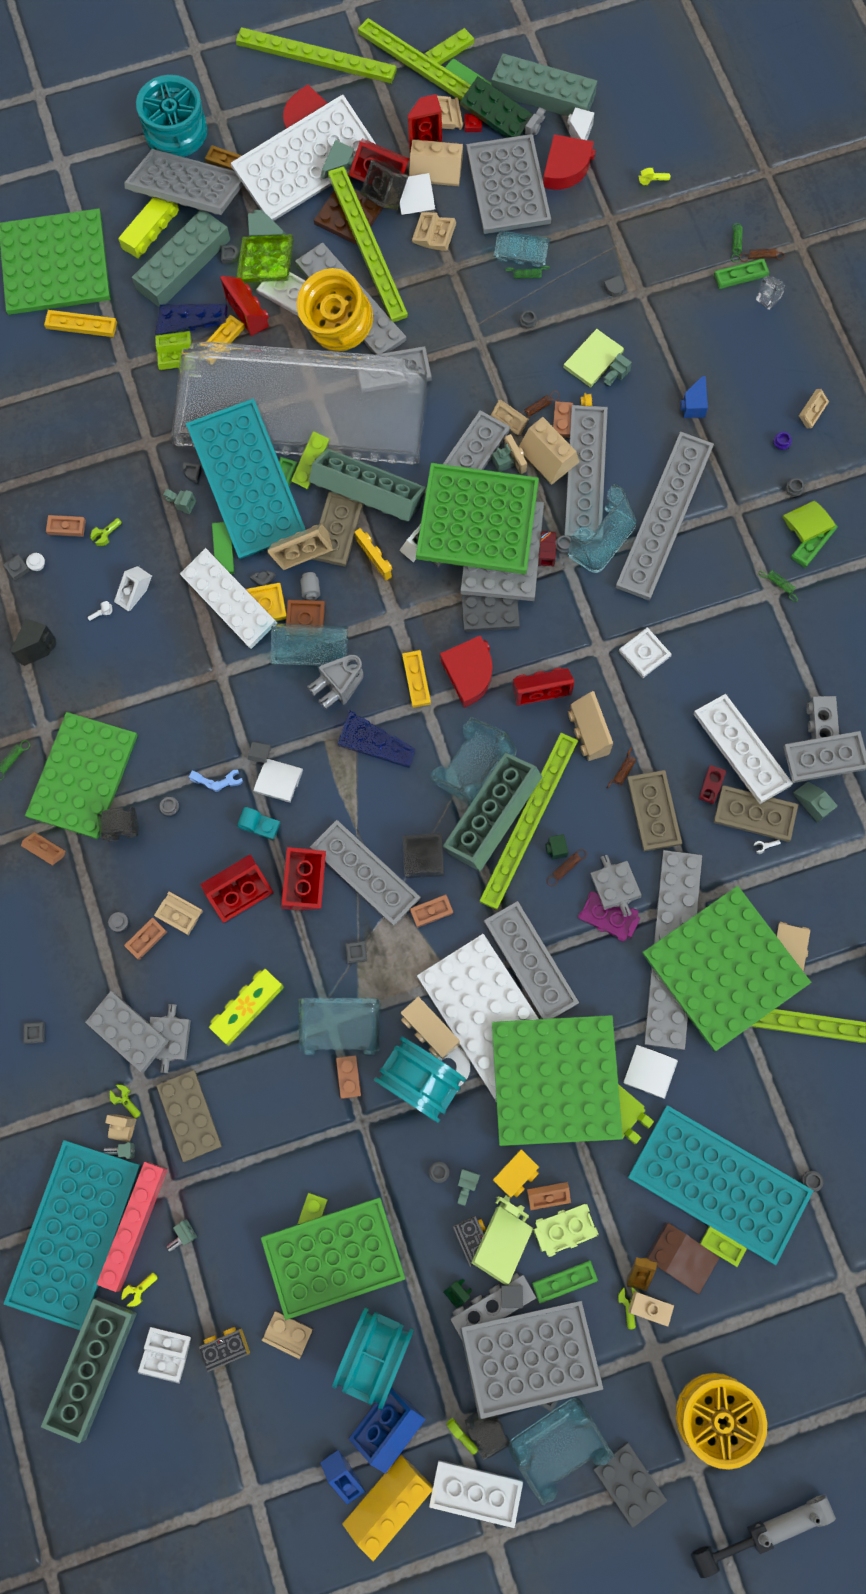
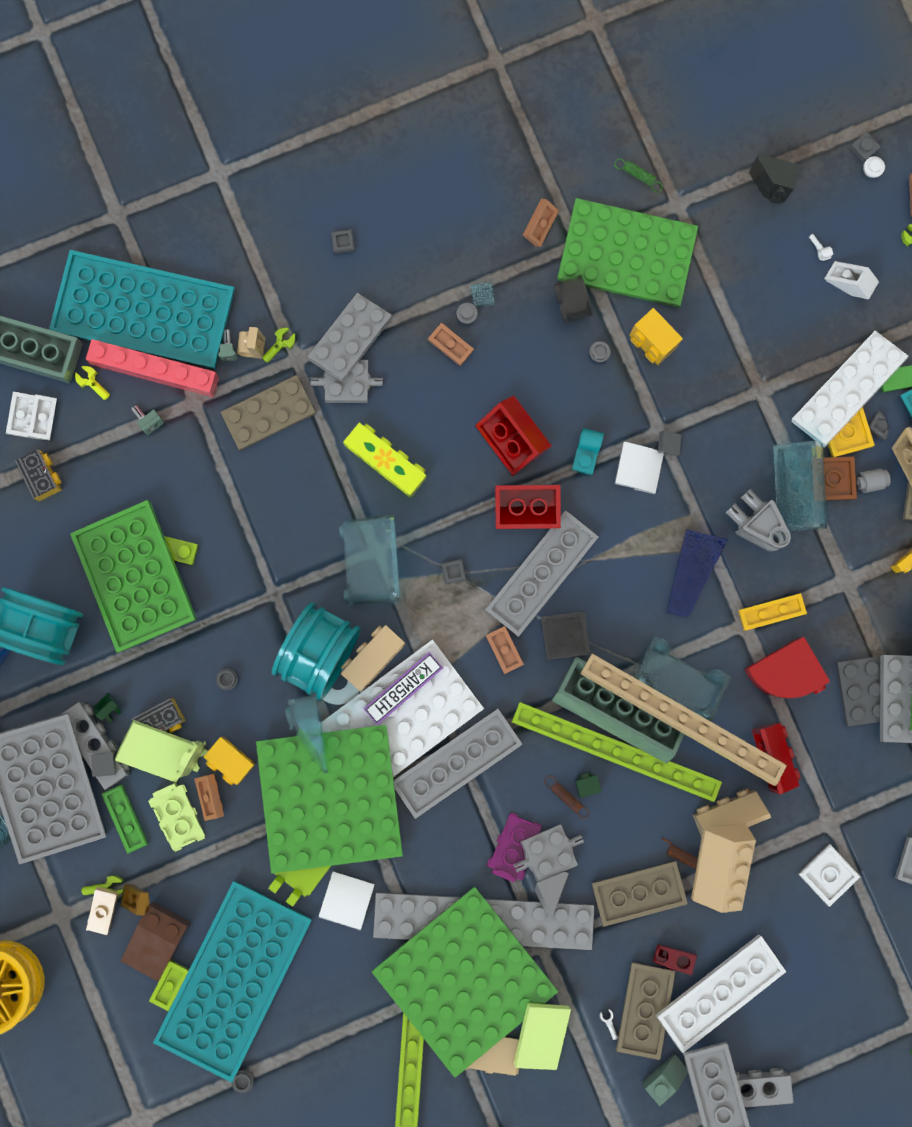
camera: 75 degrees right, 10 degrees up
(102, 907) = (482, 294): none -> clear light blue tile
(162, 755) = (655, 337): none -> yellow brick
(178, 913) = (481, 376): tan plate -> none
(216, 786) = (628, 403): light blue piece -> none
(287, 1335) = (56, 538): tan plate -> none
(348, 1077) = (319, 575): nougat plate -> none
(459, 1004) = (403, 688): none -> tile
(468, 1182) = (218, 710): sand green piece -> none
(490, 1092) = (306, 721): none -> clear light blue slope
(504, 757) = (684, 720): none -> tan plate
(634, 734) = (723, 867): none -> tan slope
(651, 886) = (550, 891): none -> light grey slope
(776, 903) = (542, 1036): none -> yellowish green tile

